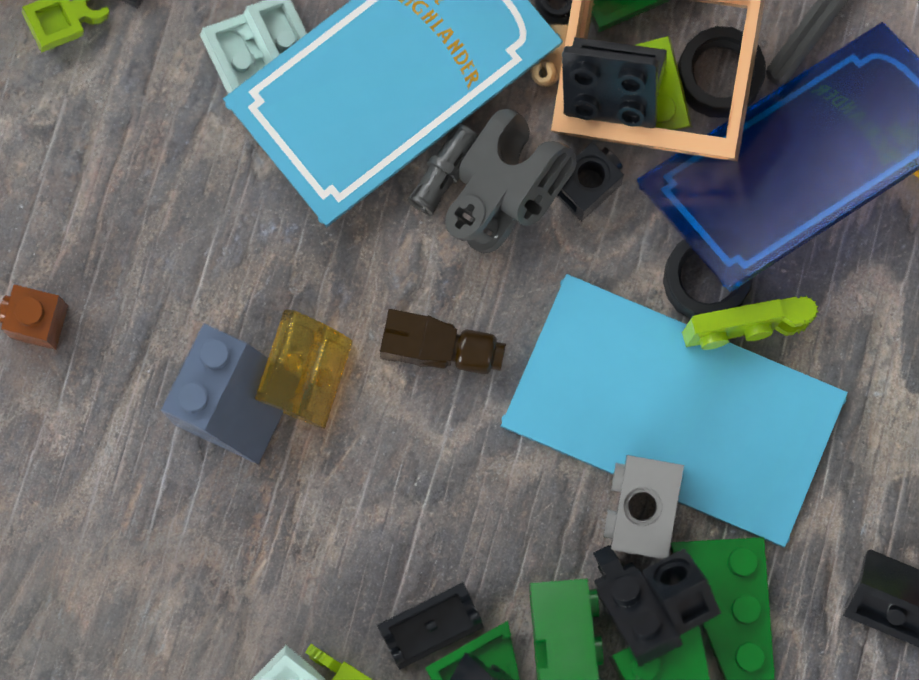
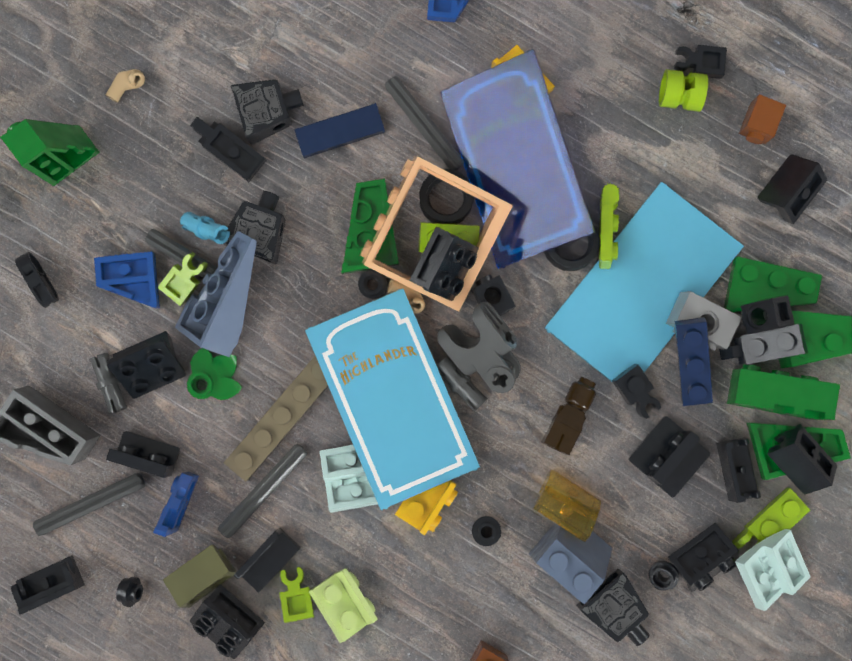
camera: 75 degrees left, 5 degrees up
(70, 85) = (343, 604): none -> yellowish green bracket
(166, 490) = (617, 609): none -> torso
(227, 544) = (660, 582): none -> black plate
(235, 280) = (482, 522): none -> black plate
(244, 166) = (423, 509): none -> yellow bracket
(277, 604) = (705, 558): none -> black bracket
(420, 512) = (669, 456): none -> black bracket
(513, 431) = (635, 388): none -> black plate
(576, 504) = (693, 361): none -> dark blue plate

